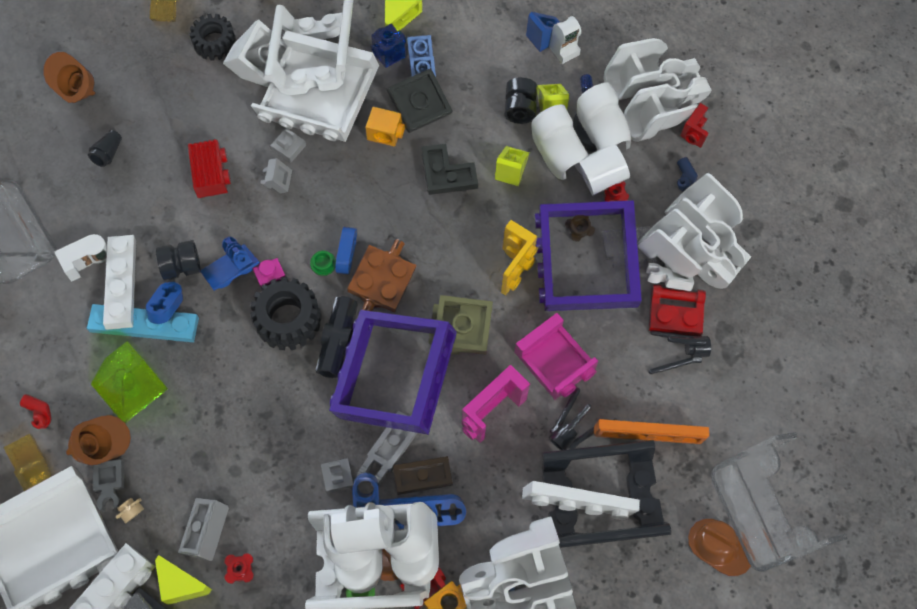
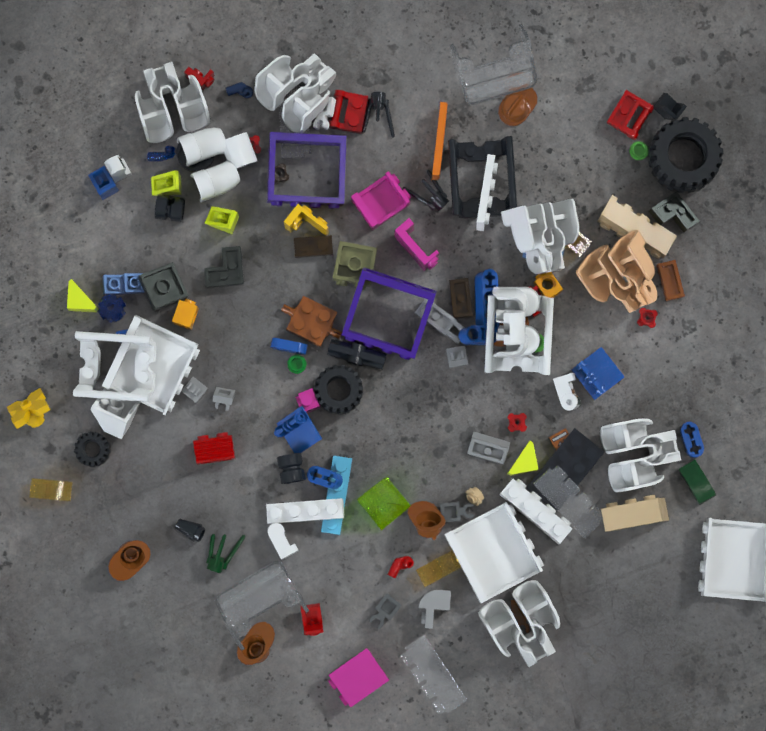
camera: 85 degrees left, 15 degrees up
(61, 180) = (215, 562): none -> dark green plant
(485, 275) = (313, 246): none -> dark brown plate

